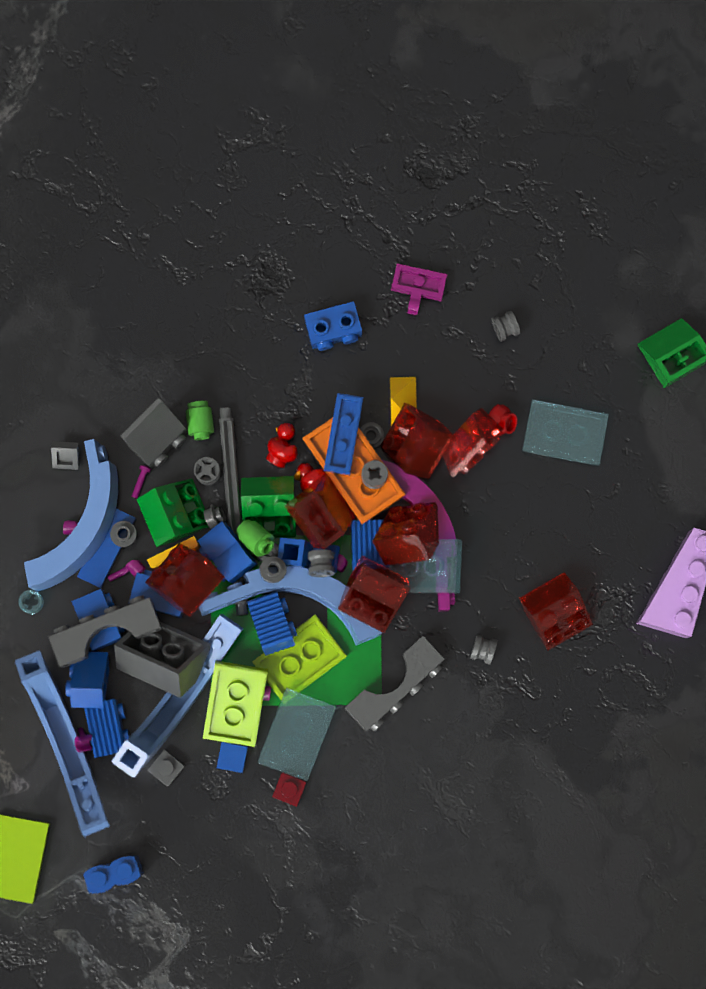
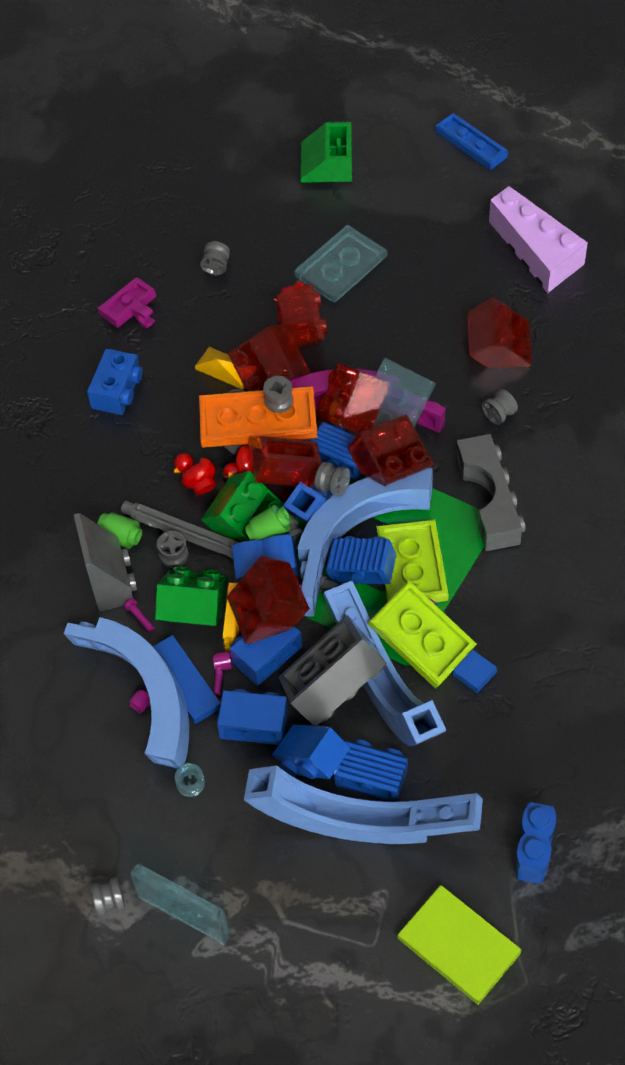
camera: 55 degrees left, 25 degrees down
(65, 455) = (64, 665): dark grey plate -> none
(73, 643) = (278, 665): dark grey arch -> none
(82, 741) = (371, 796): magenta hand -> none
(125, 542) = (181, 656): dark grey plate -> none
(166, 768) = (451, 741): dark grey plate -> none
(214, 516) = (222, 562): dark grey plate -> none
(269, 577) = (311, 521): dark grey plate -> none
(289, 789) = (539, 636): dark red plate -> none
(296, 734) = (487, 598): clear light blue tile -> none
(343, 434) = (222, 404): blue tile -> none

